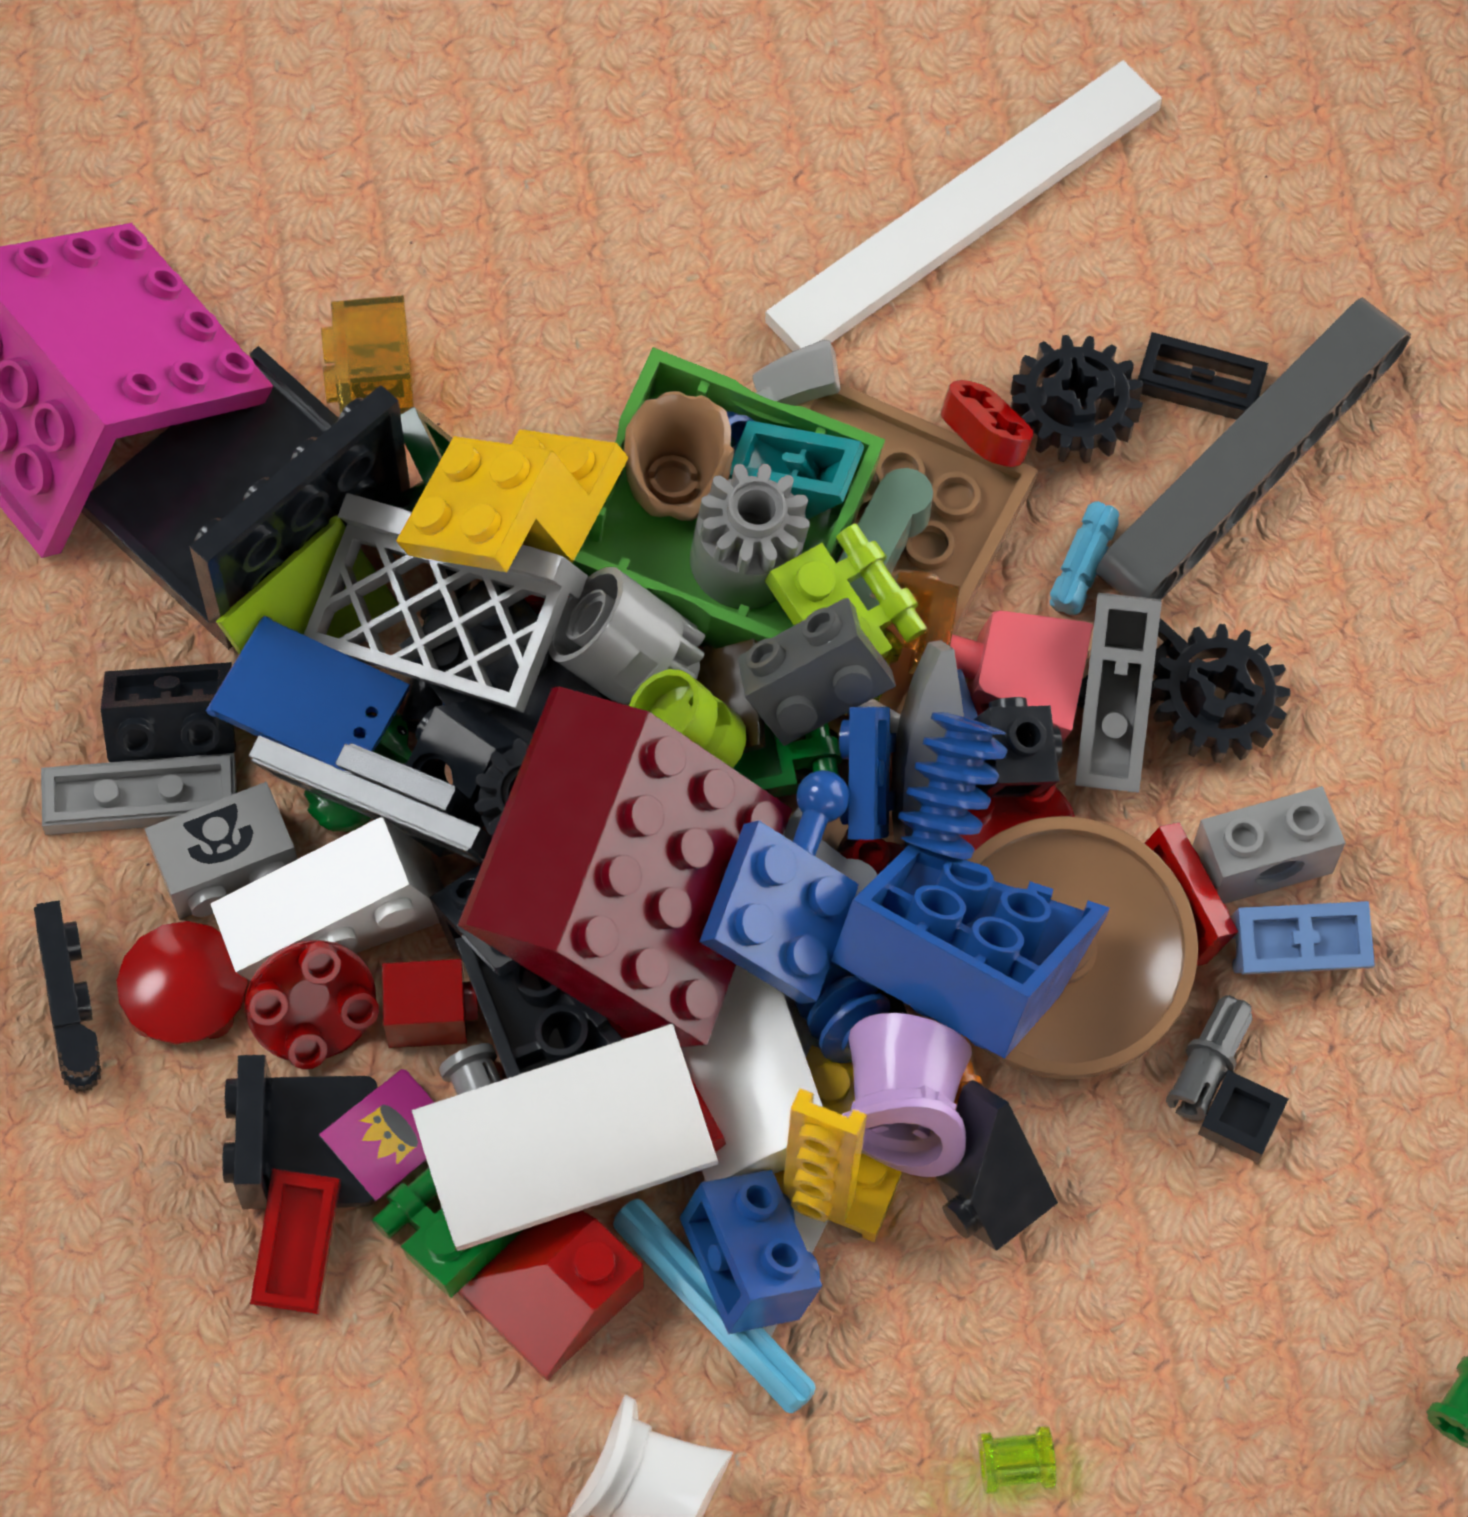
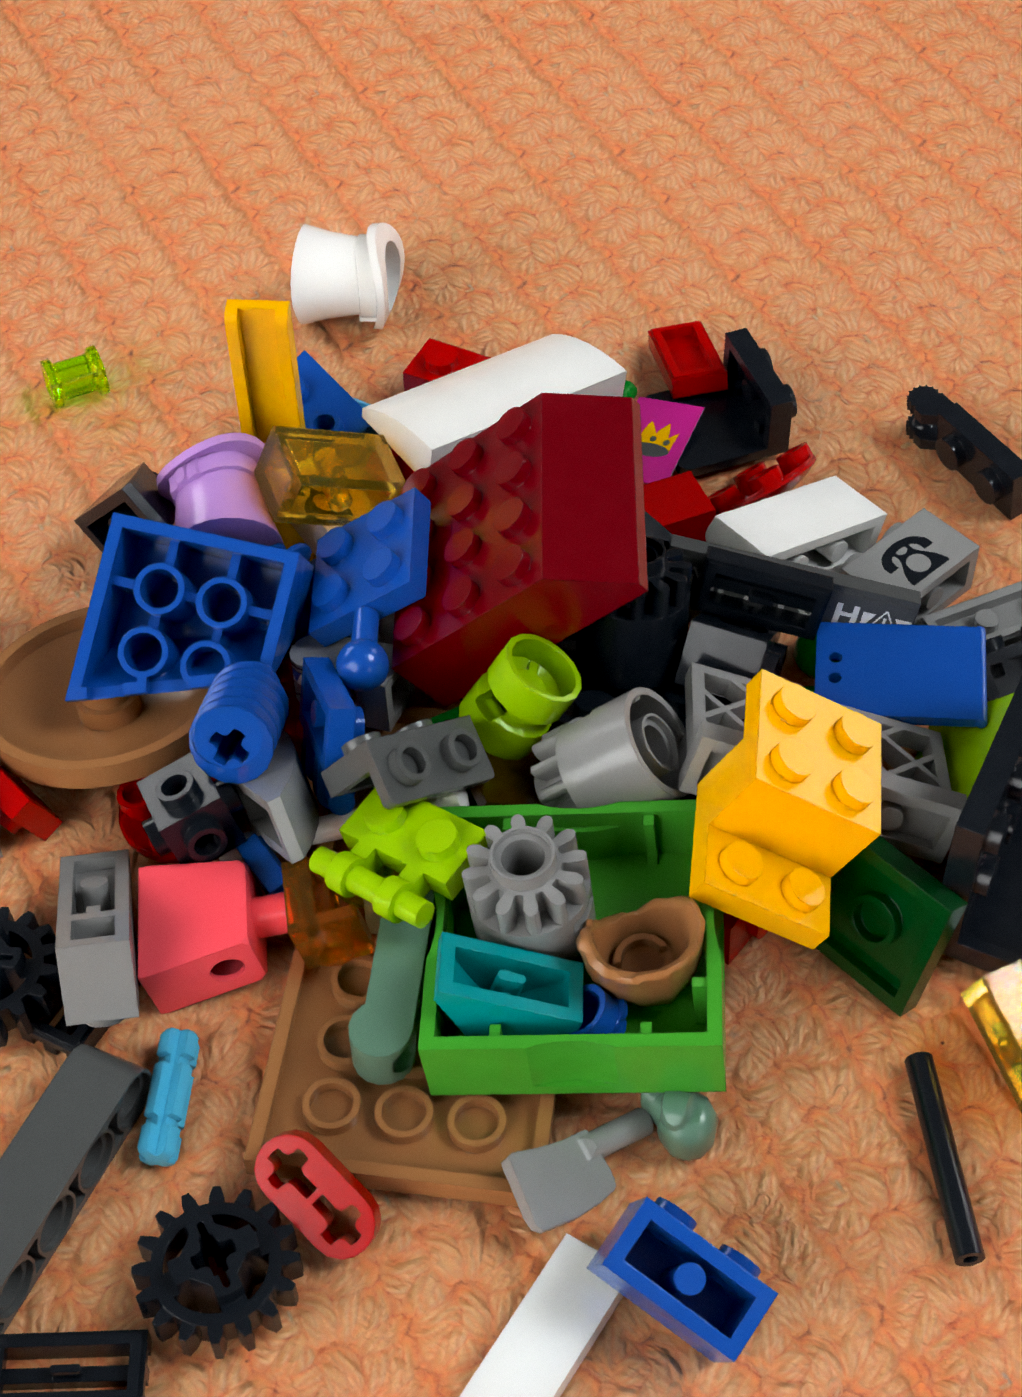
camera: 165 degrees right, 15 degrees down
(180, 984) = (891, 484): red dish -> none
(490, 331) = (944, 1160): none -> black piece
(741, 262) = (683, 1280): none -> blue brick
(768, 1057) = (325, 475): none -> clear yellow brick

